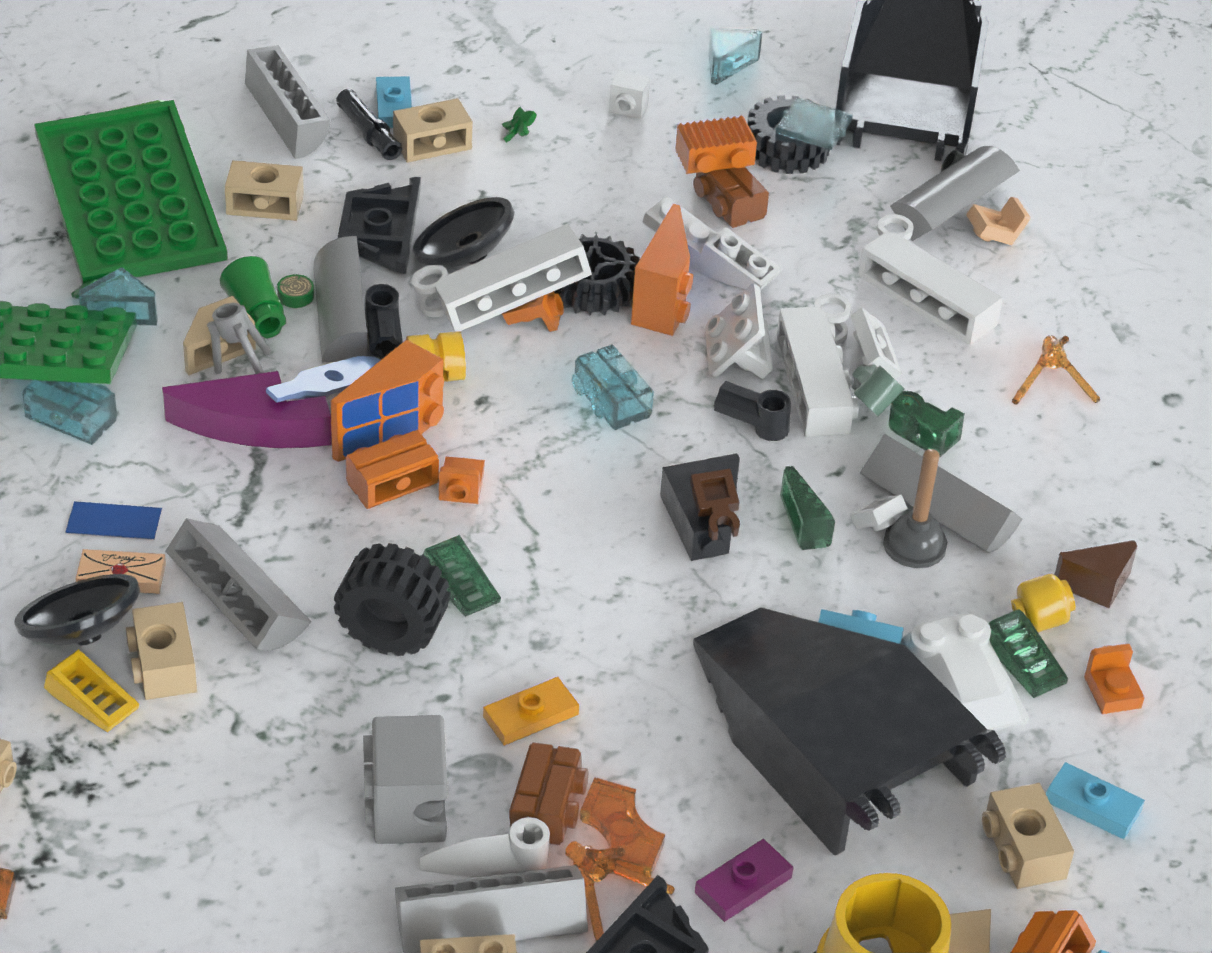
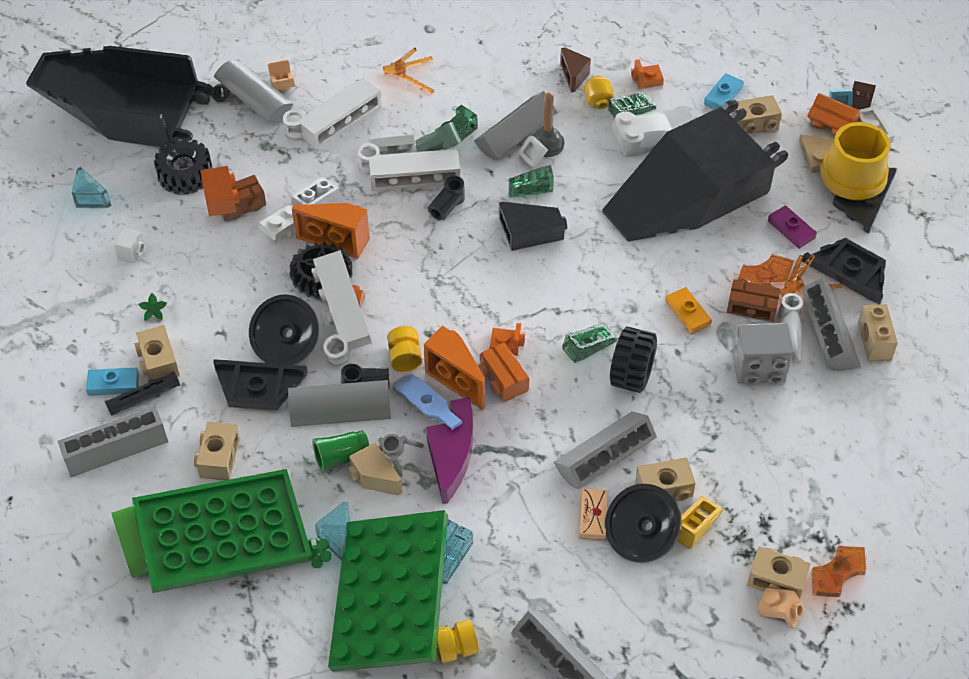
camera: 85 degrees left, 10 degrees up
(114, 520) = (542, 524): blue sticker -> none
(295, 291) = (322, 429): tile -> none
(612, 387) = (429, 263): clear light blue brick -> none
(716, 497) = (547, 209): reddish brown plate -> none
(739, 336) = (387, 199): white bracket -> none
(814, 123) = (189, 146): clear light blue piece -> none
(862, 623) = (622, 165): medium azure plate -> none

